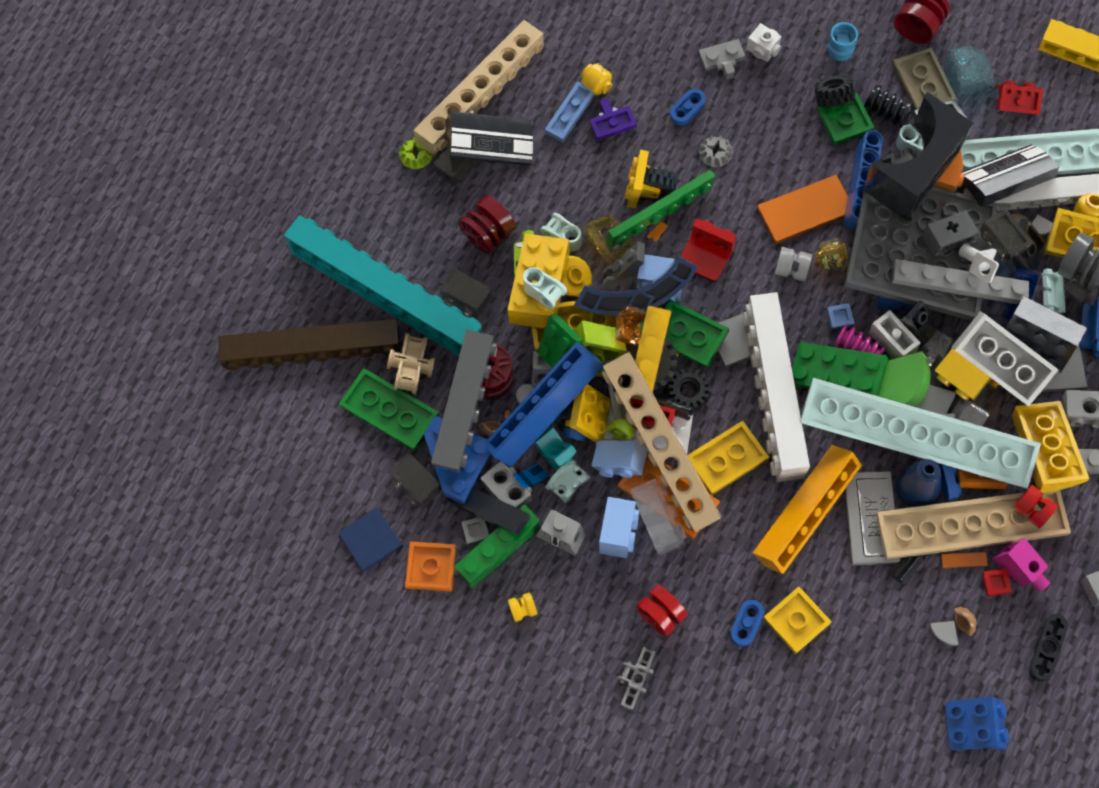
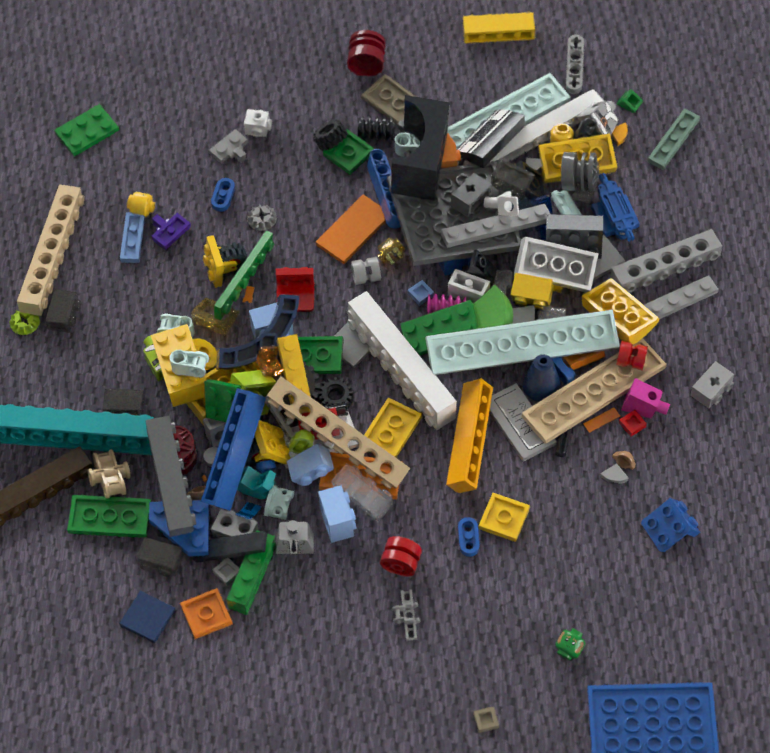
camera: 30 degrees left, 10 degrees down
(487, 224) = (114, 345): dark red wheel -> none
(489, 138) = (80, 282): black slope -> none
(522, 607) = (294, 606): yellow wheel -> none
(624, 266) = (239, 326): dark grey hinge -> none
(842, 41) = (316, 97): dark azure wheel -> none
(969, 71) = (423, 78): clear light blue slope -> none
(1019, 98) = (470, 82): red bracket -> none
(1060, 633) = (695, 442): black beam -> none

